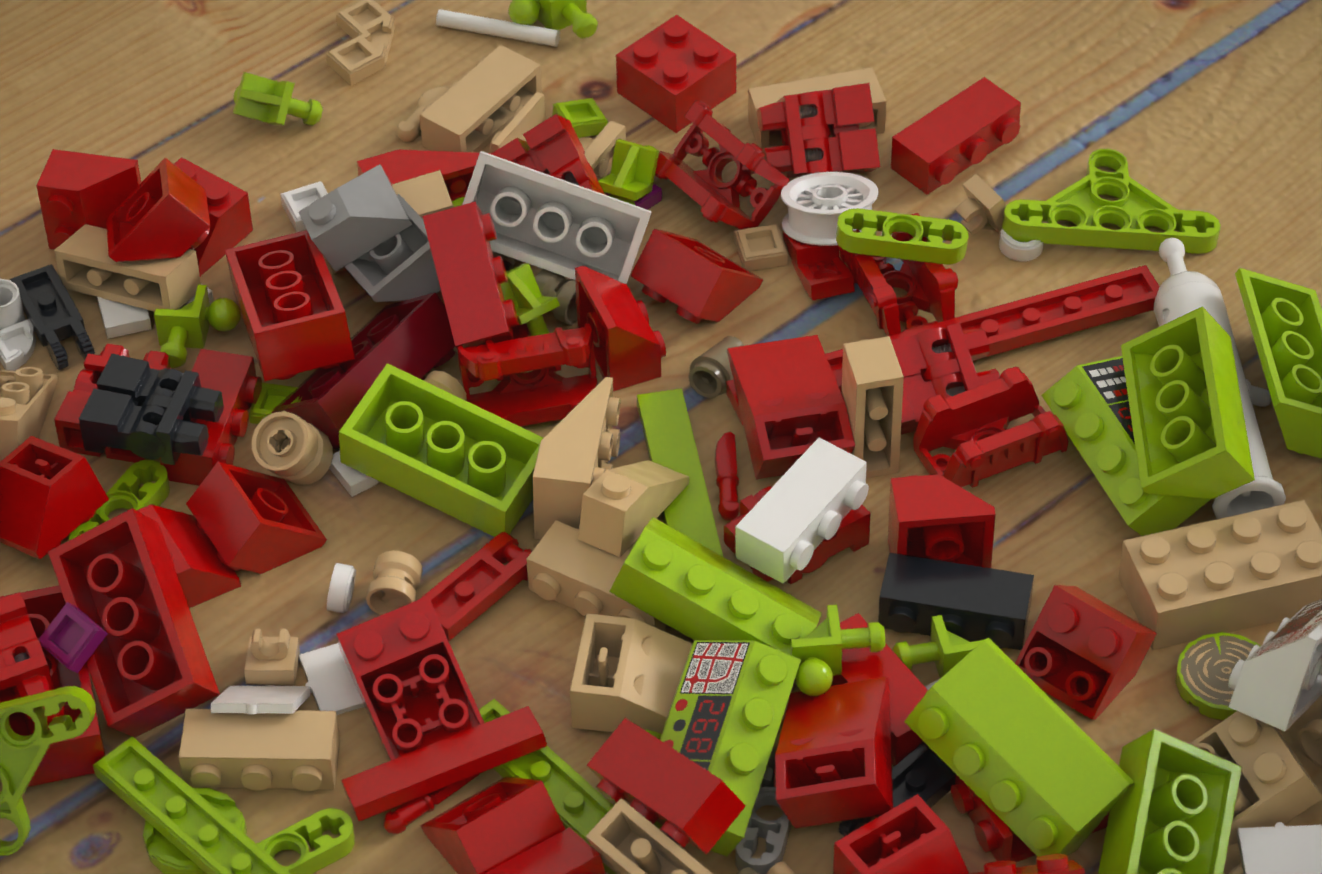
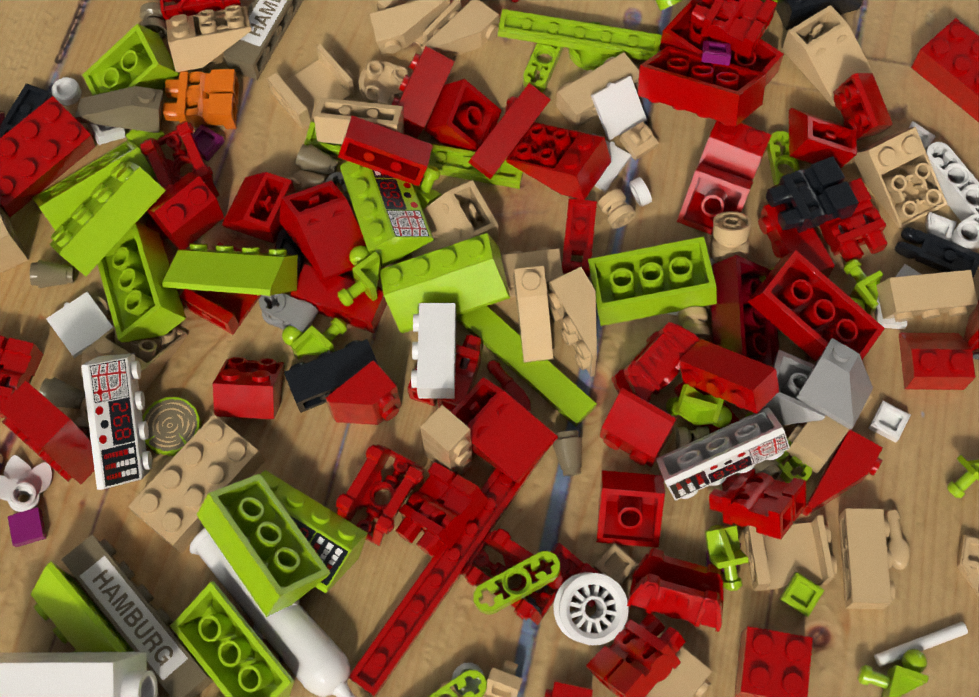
camera: 145 degrees right, 20 degrees up
(159, 217) = (931, 311): red slope -> none

